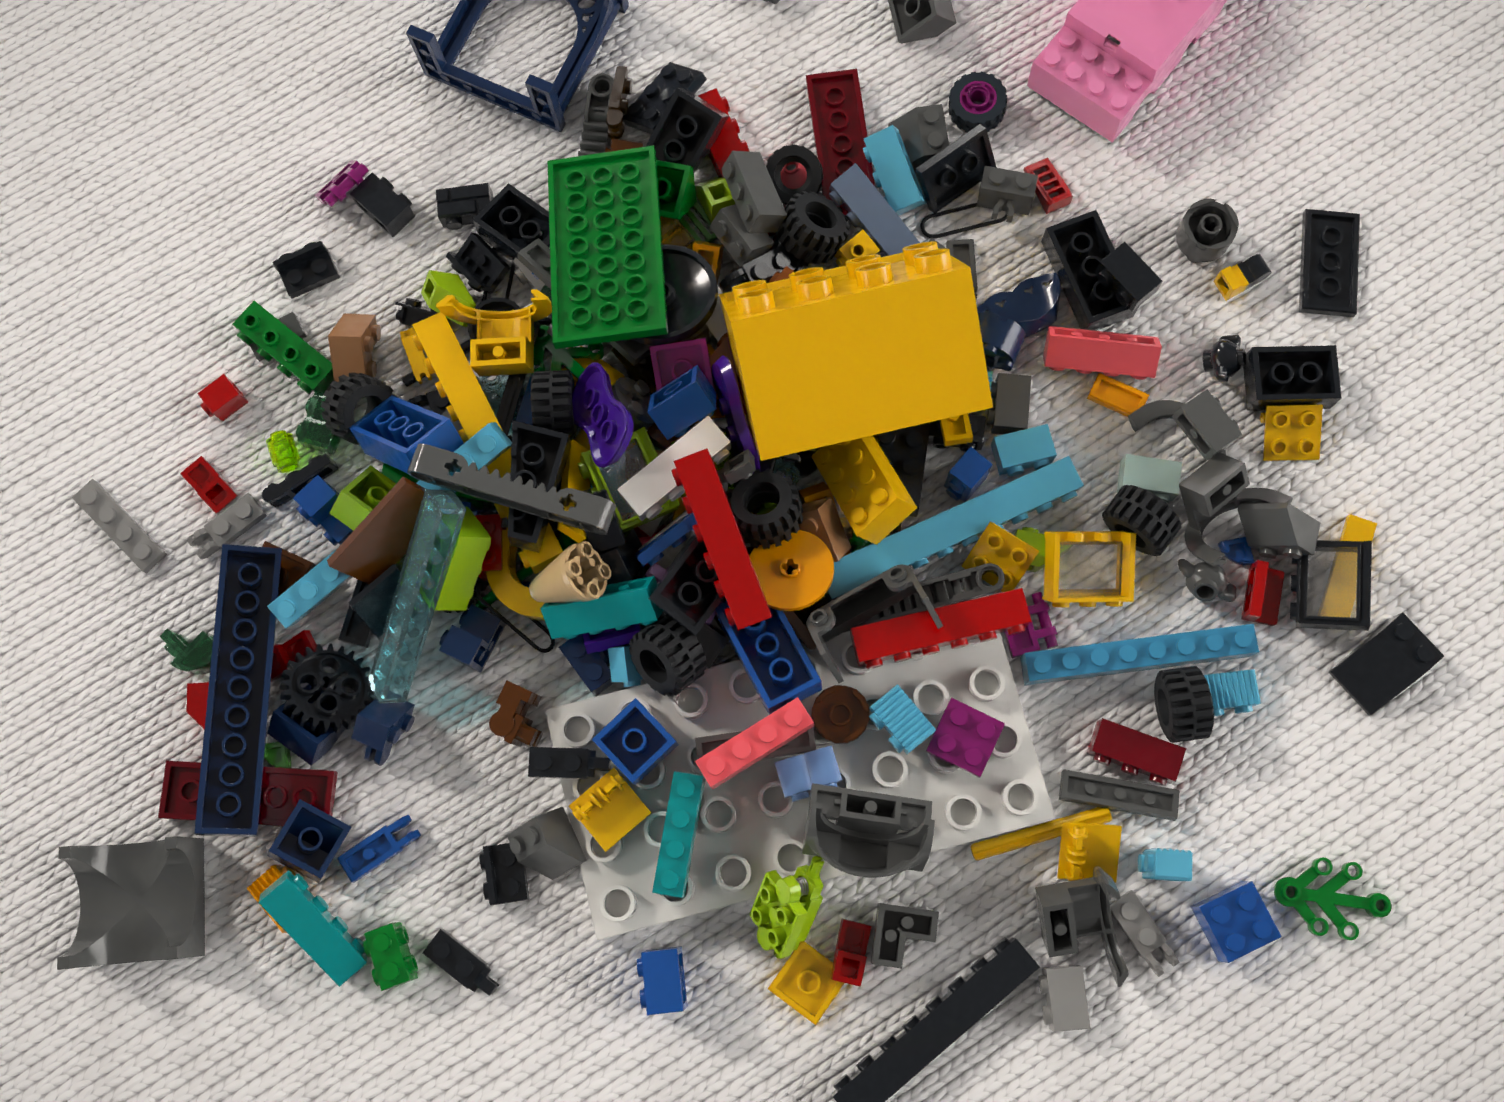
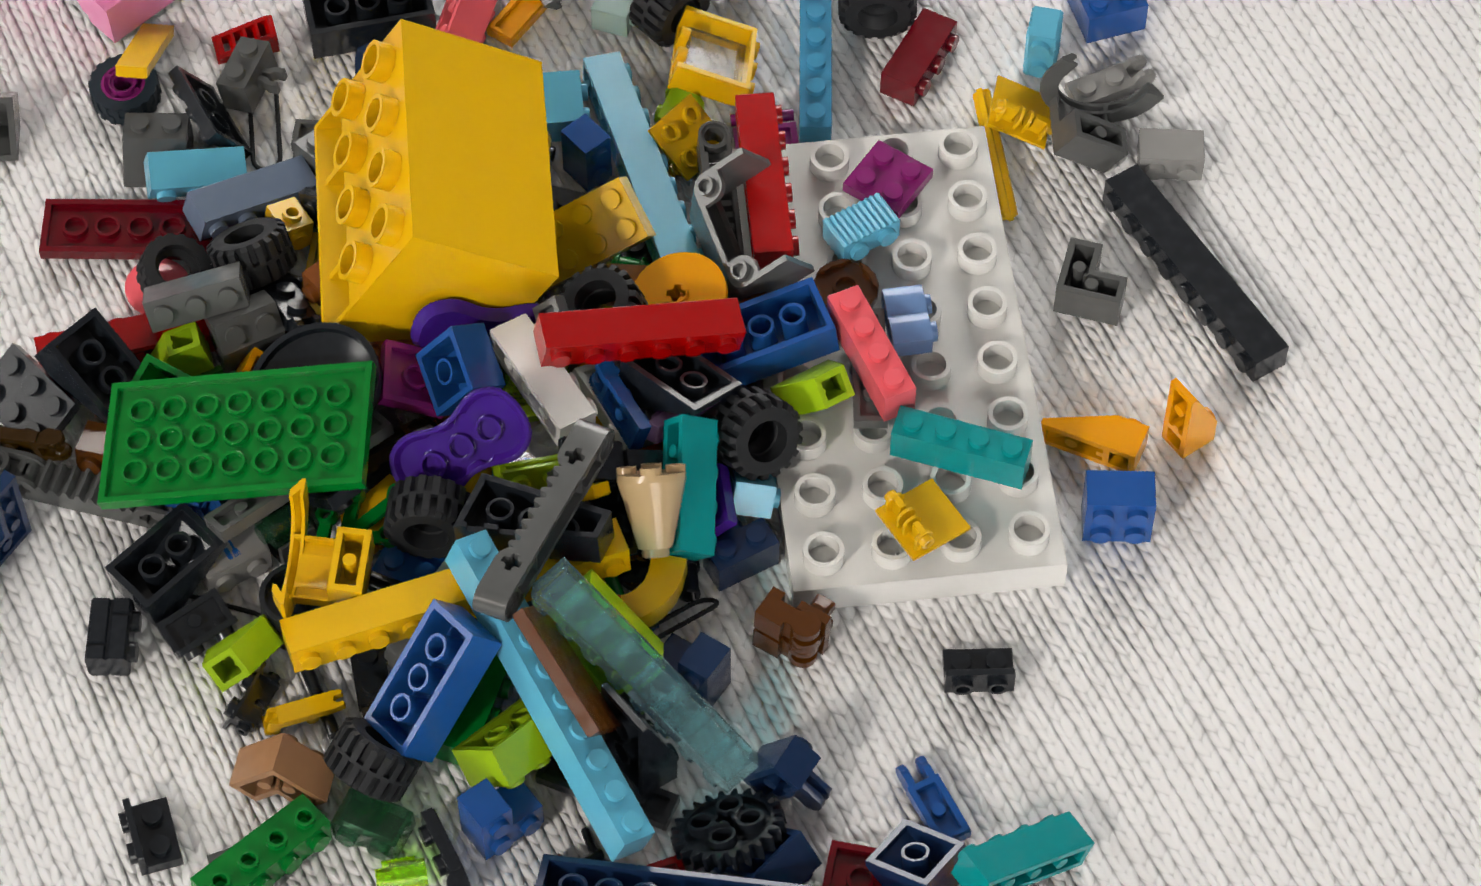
camera: 90 degrees left, 20 degrees down
(342, 183) = (35, 780): magenta plate -> none
(382, 204) = (83, 733): black brick -> none
(390, 956) = (1063, 789): green brick -> none
(460, 962) = (1078, 727): black hinge -> none
(547, 844) = (952, 606): dark grey slope -> none
(565, 763) = (863, 558): black hinge -> none
(635, 741) = (850, 474): blue brick -> none
(721, 700) = (816, 388): none -> lime slope
(741, 967) = (1102, 439): none -> light orange slope
(763, 1039) = (1186, 421): none -> light orange slope
(787, 908) = (1054, 364): lime piece -> none
(806, 982) = (1131, 385): yellow tile -> none
(850, 952) = (1113, 340): red slope -> none
(866, 830) = (980, 275): dark grey piece -> none
(1007, 104) = (144, 51): none -> yellow tile
(1119, 795) = (963, 78): dark grey plate -> none

